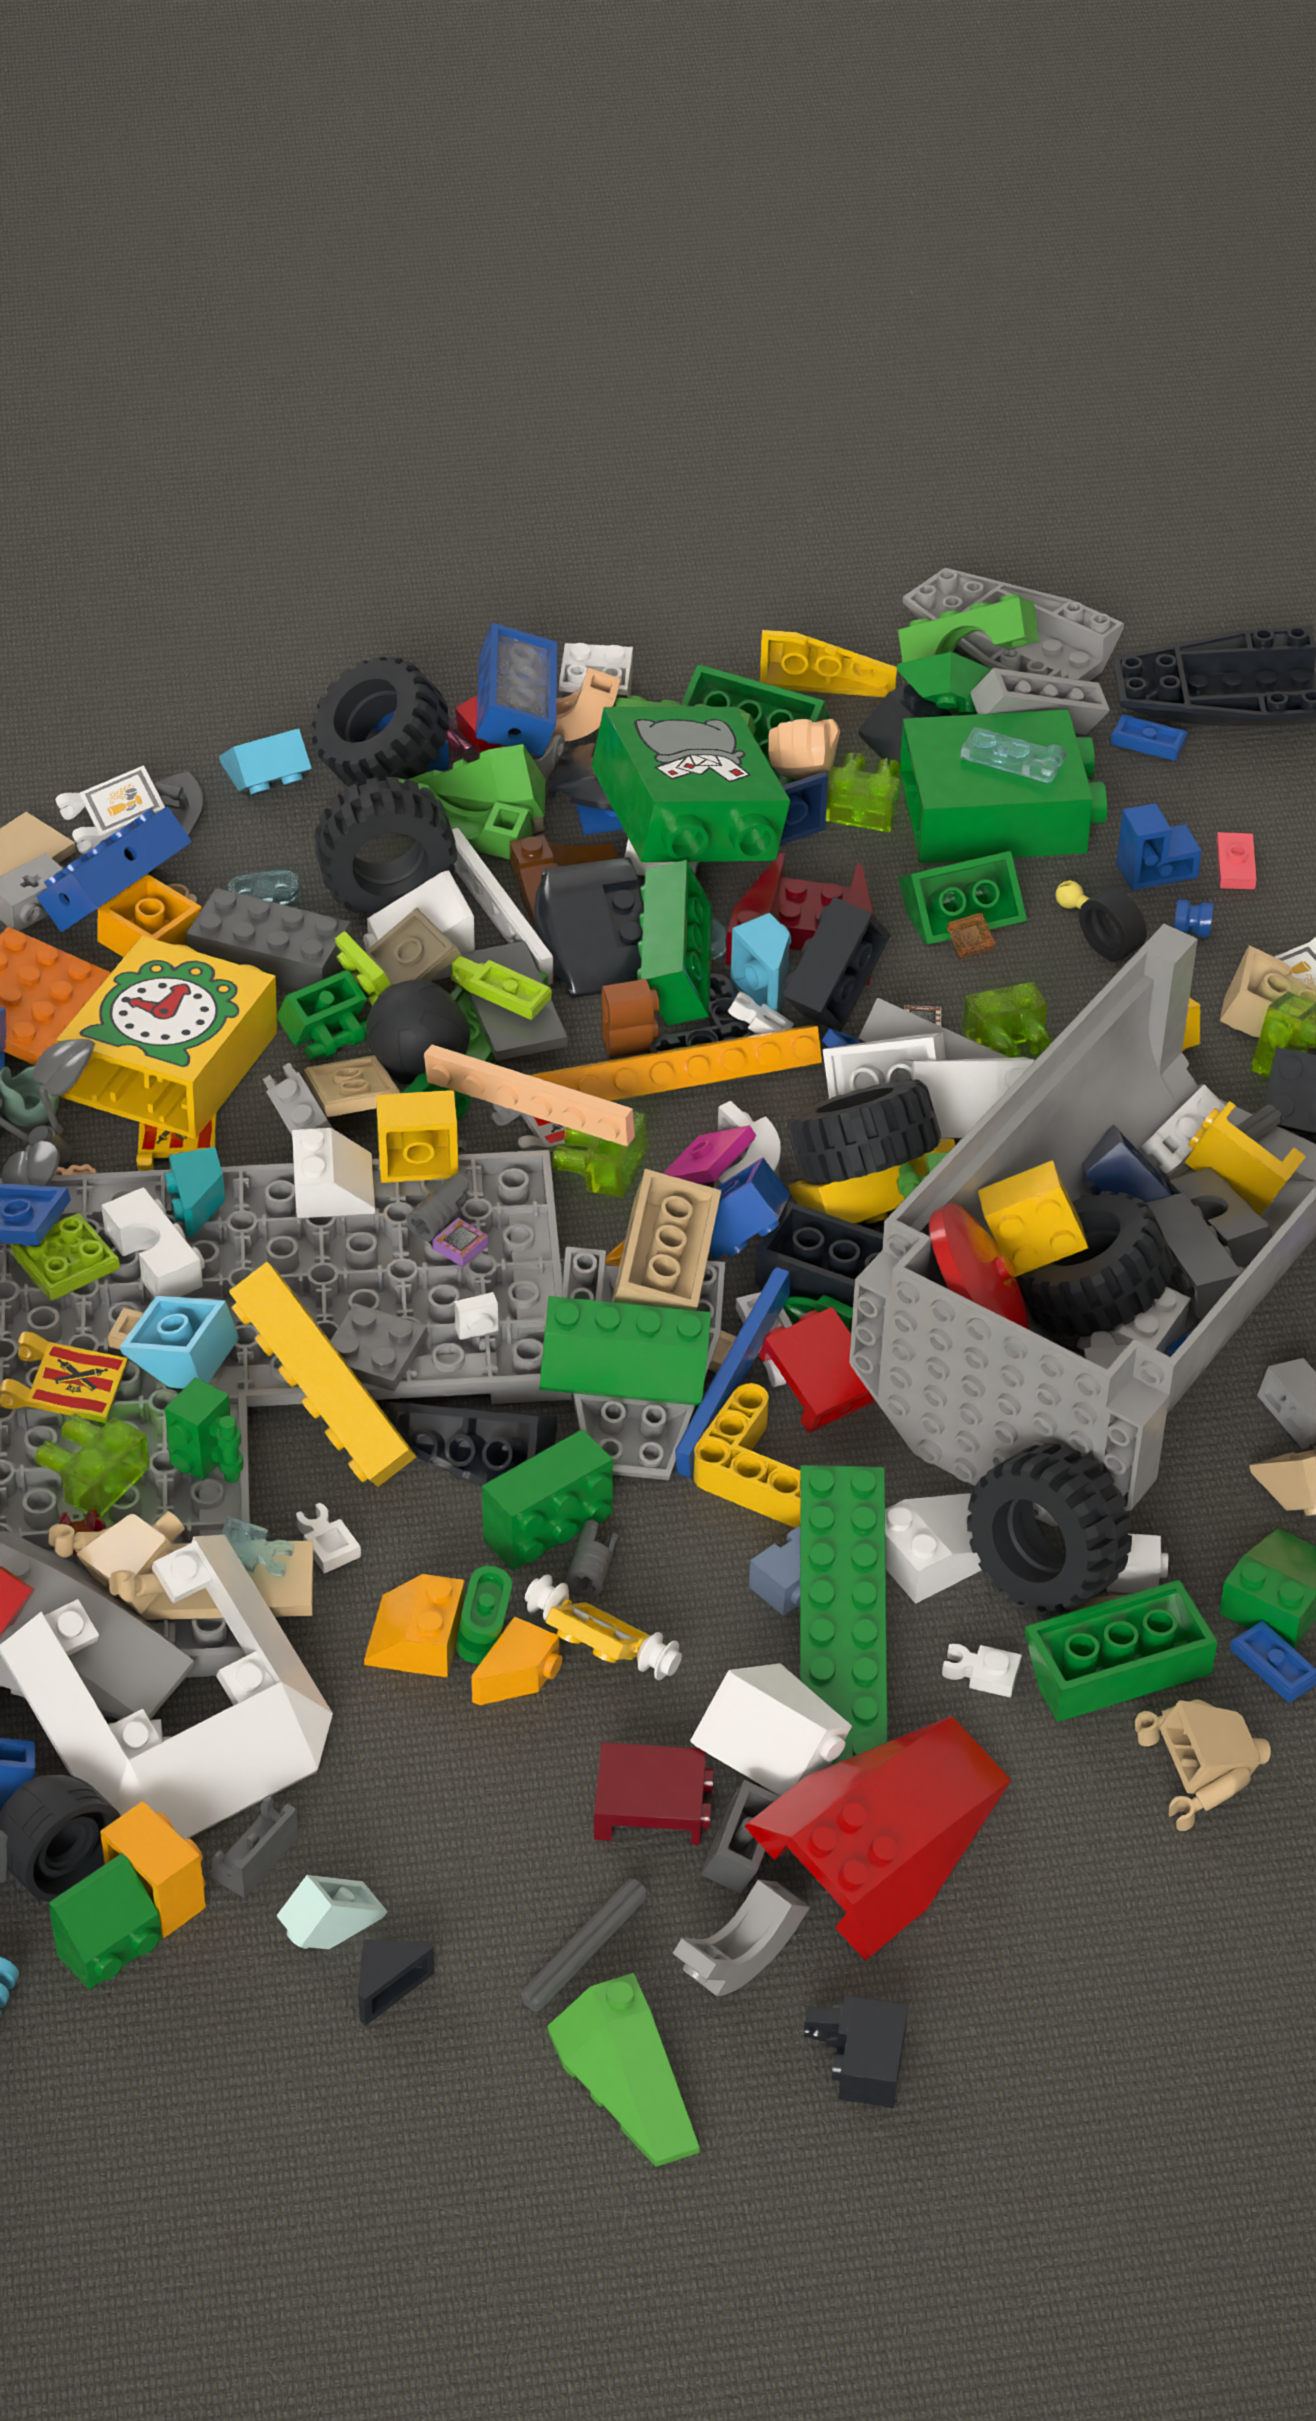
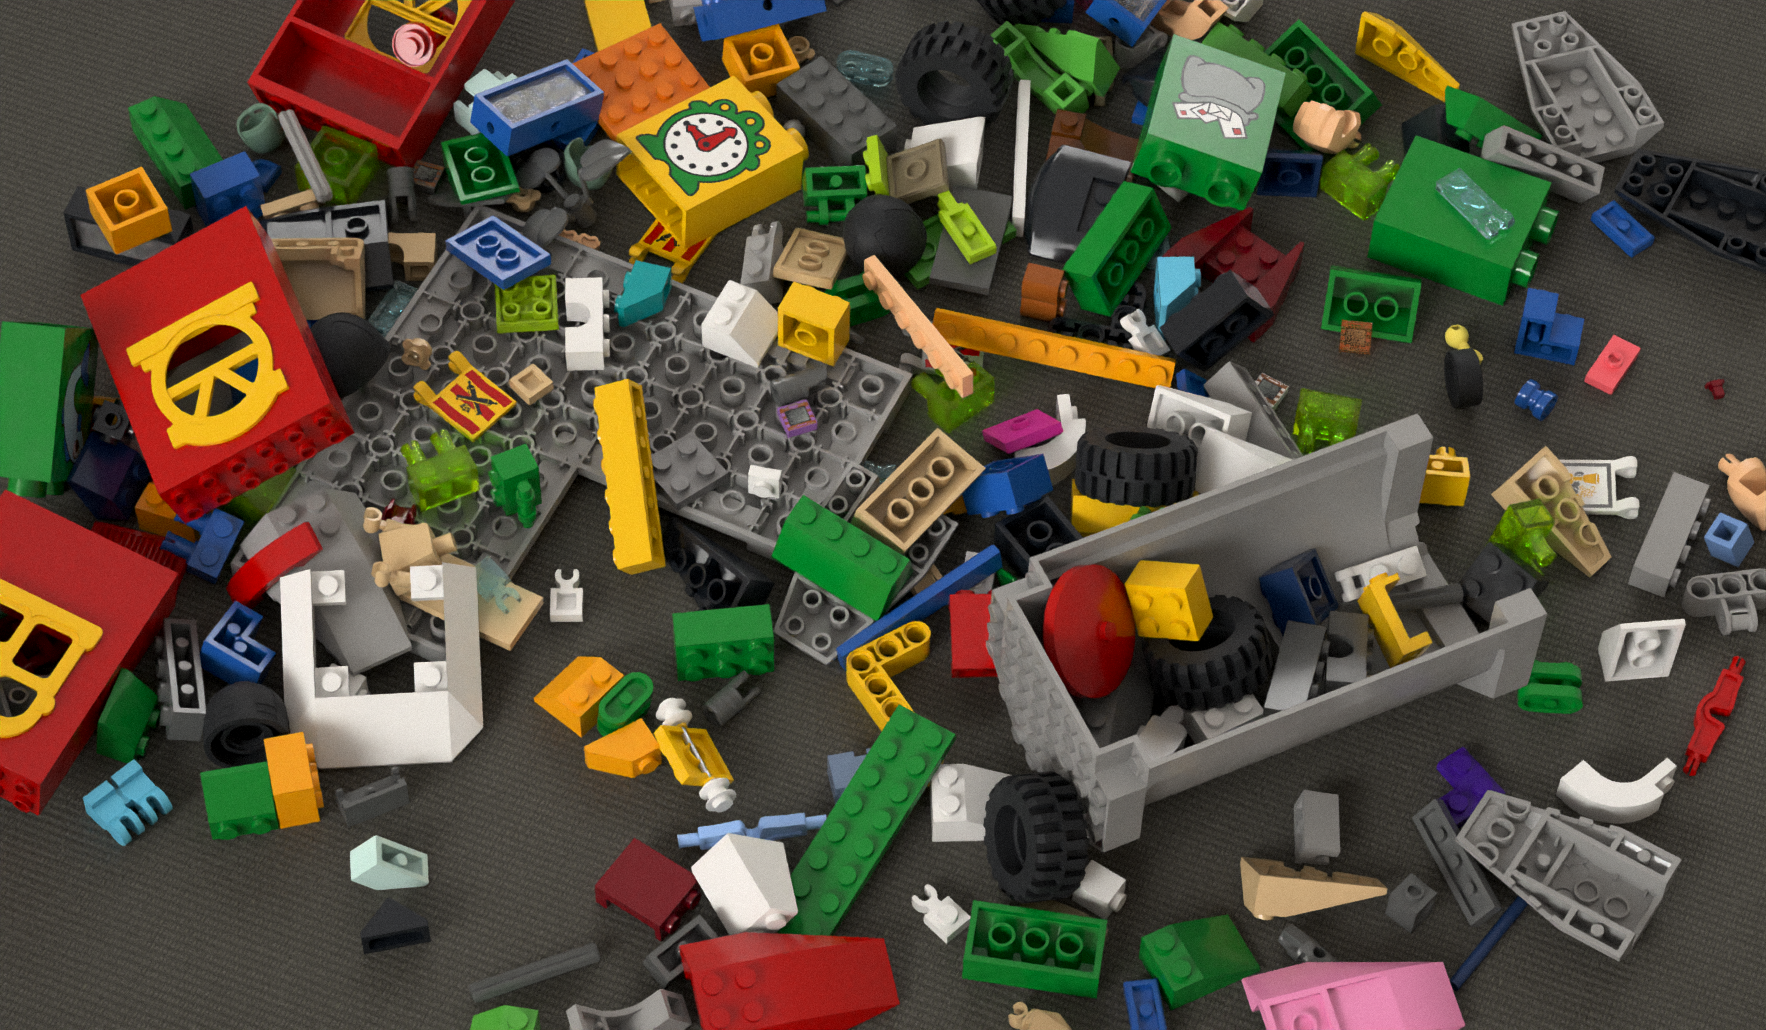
camera: 30 degrees right, 10 degrees up
(181, 1339) = (552, 407): medium azure slope -> none
(702, 1688) = (769, 828): none -> light blue piece
(1007, 624) = (1551, 87): bright green arch -> none

